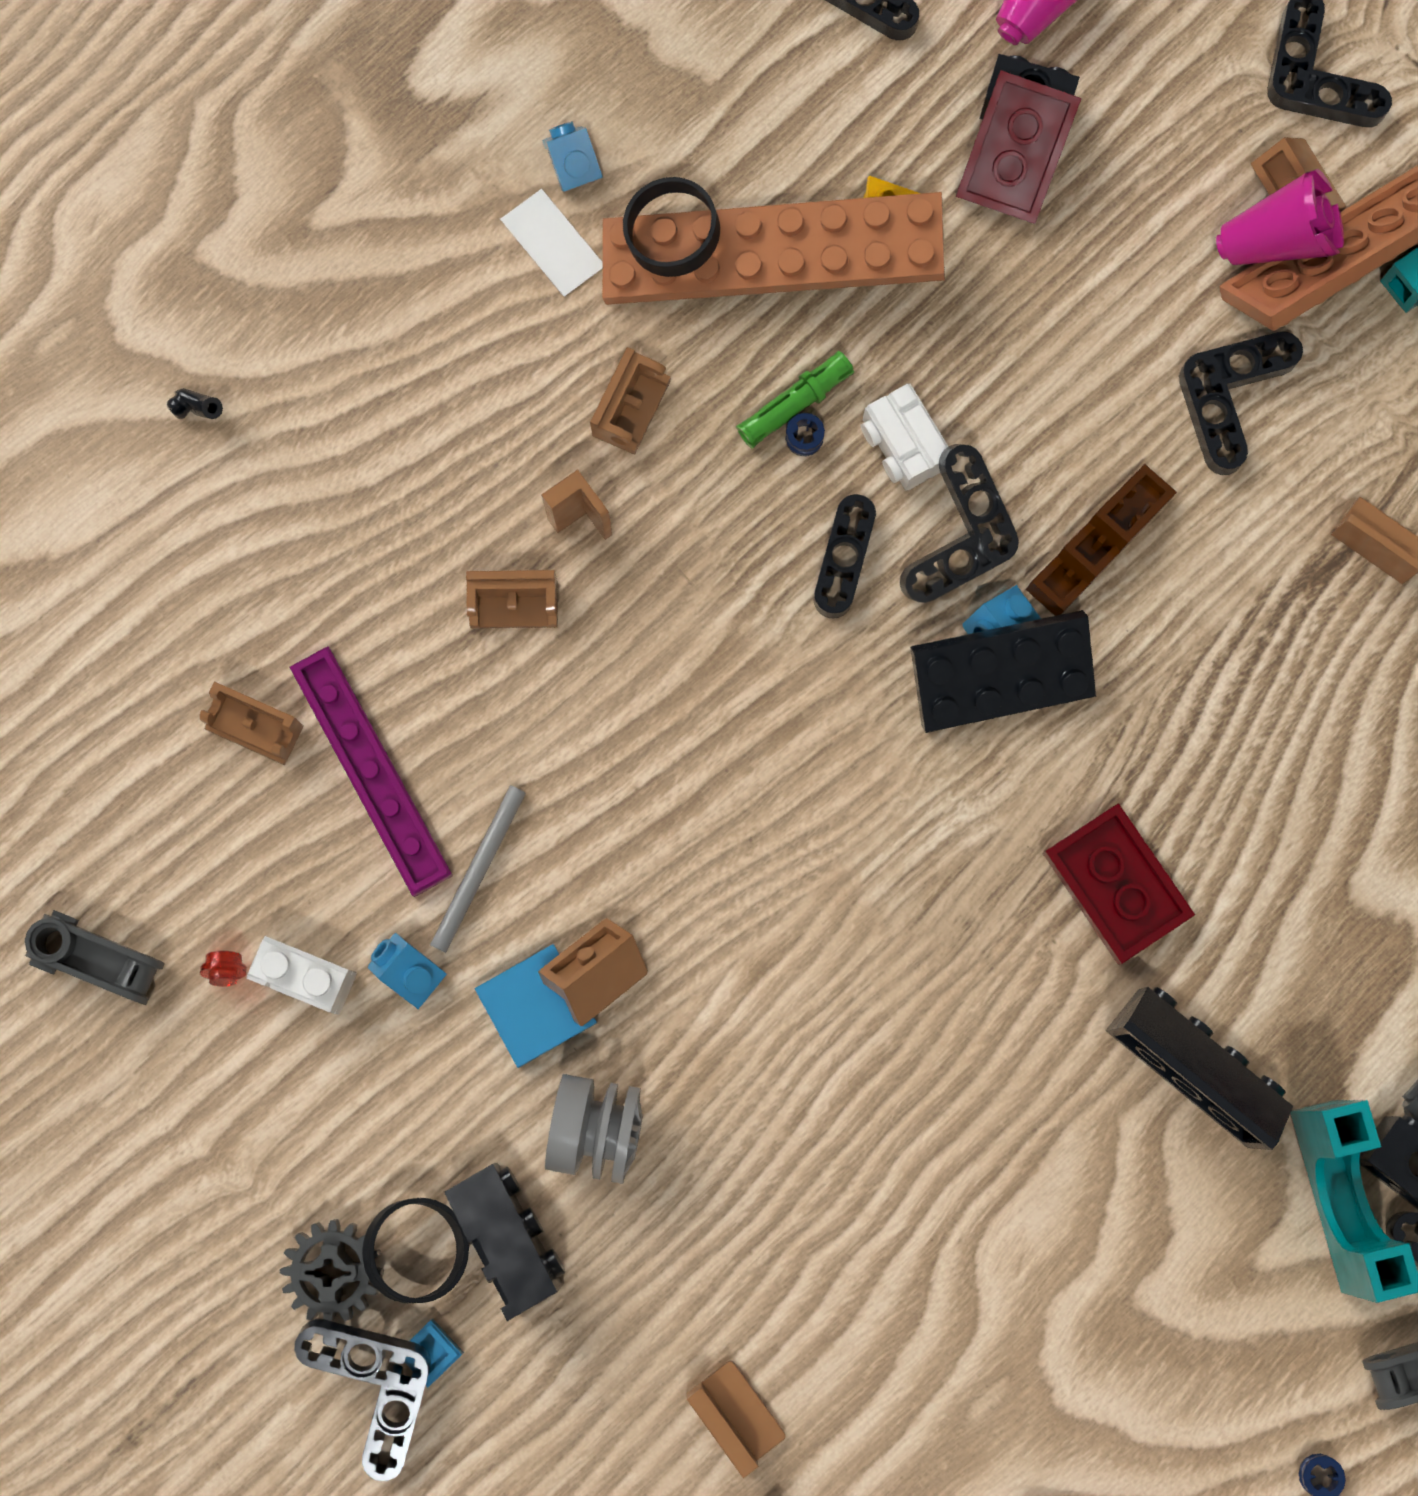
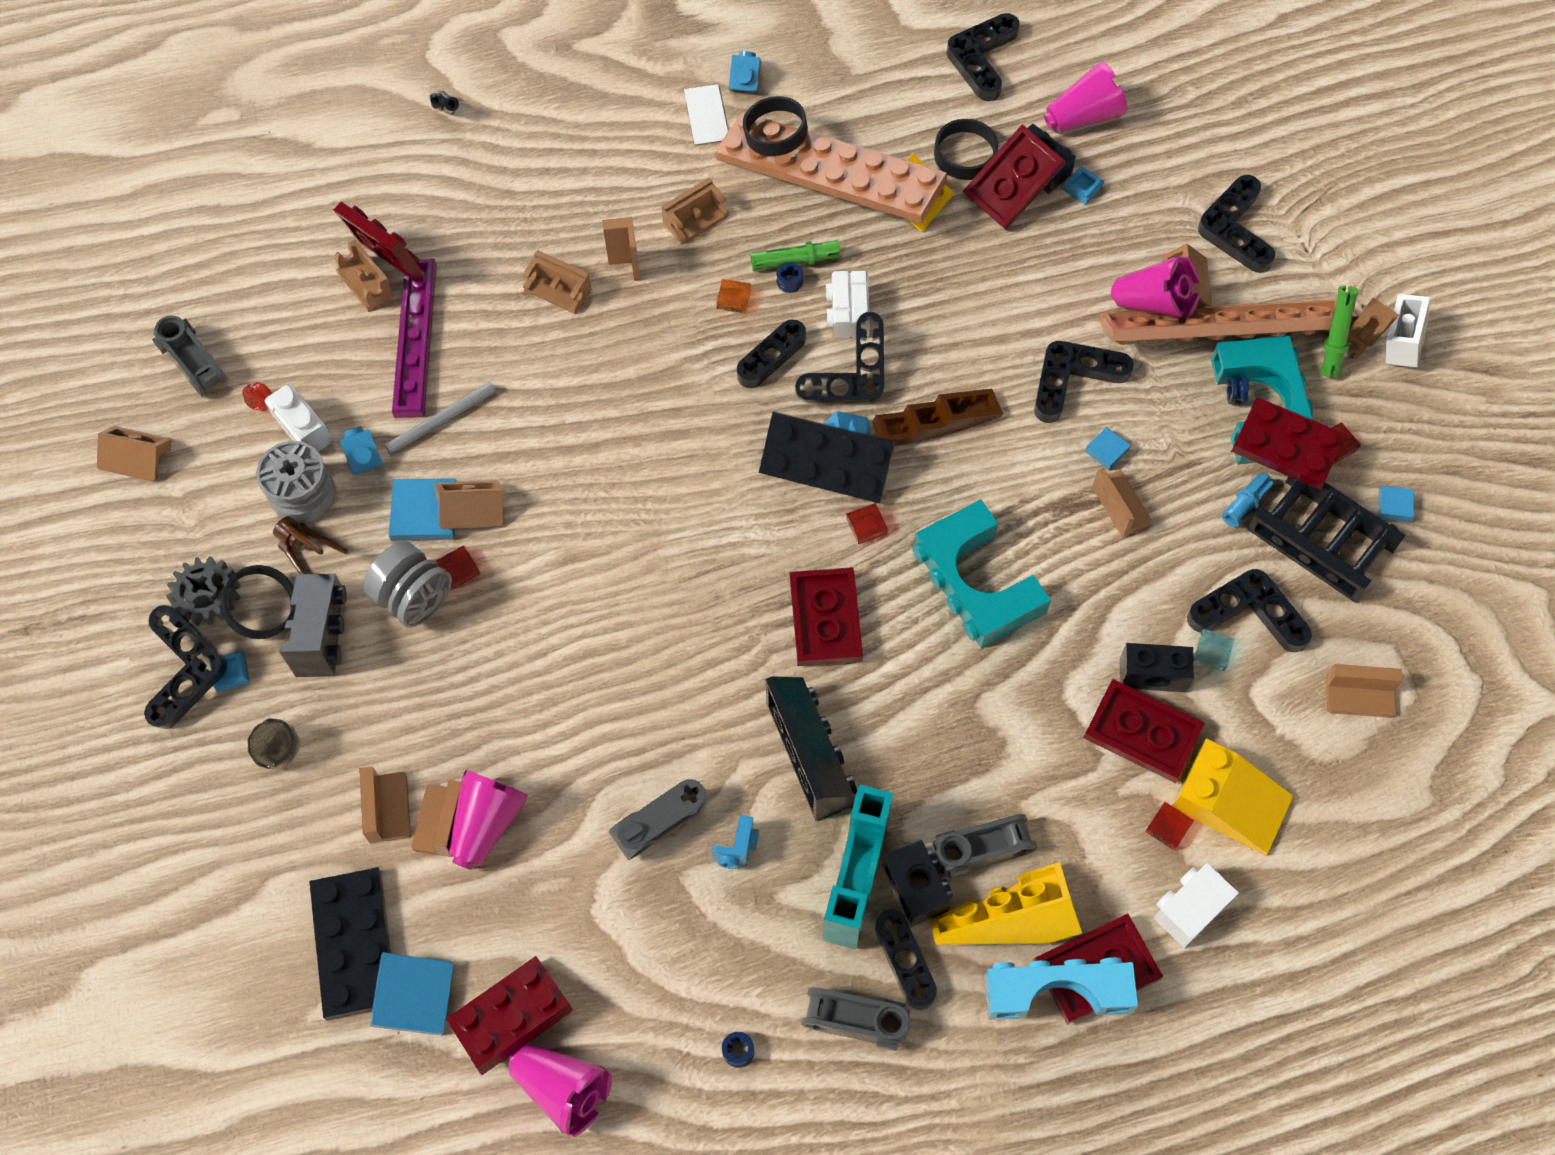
camera: 30 degrees right, 15 degrees down
(106, 1131) = (131, 452): none -> medium nougat panel
(251, 667) = (376, 239): none -> dark red plate
(385, 1062) = (296, 481): none -> light grey wheel
(394, 1133) = (295, 535): none -> reddish brown plant
(554, 1422) = (273, 743): none -> clear smoke hair
(629, 1060) = (459, 565): none -> clear red tile
(748, 497) = (733, 296): none -> clear orange tile
(810, 1397) = (436, 819): none -> medium nougat panel
(869, 1370) = (481, 817): none -> dark pink cone
(932, 90) = (963, 125): none -> black tyre
(1075, 1255) = (657, 818): none -> dark grey piece
(1095, 730) = (867, 523): none -> clear red tile
(1098, 108) = (1083, 185): none -> dark azure tile
(1189, 1225) = (745, 839): none -> dark azure bracket
(1210, 724) = (984, 614): none -> teal arch
(1326, 473) = (1107, 448): none -> dark azure tile

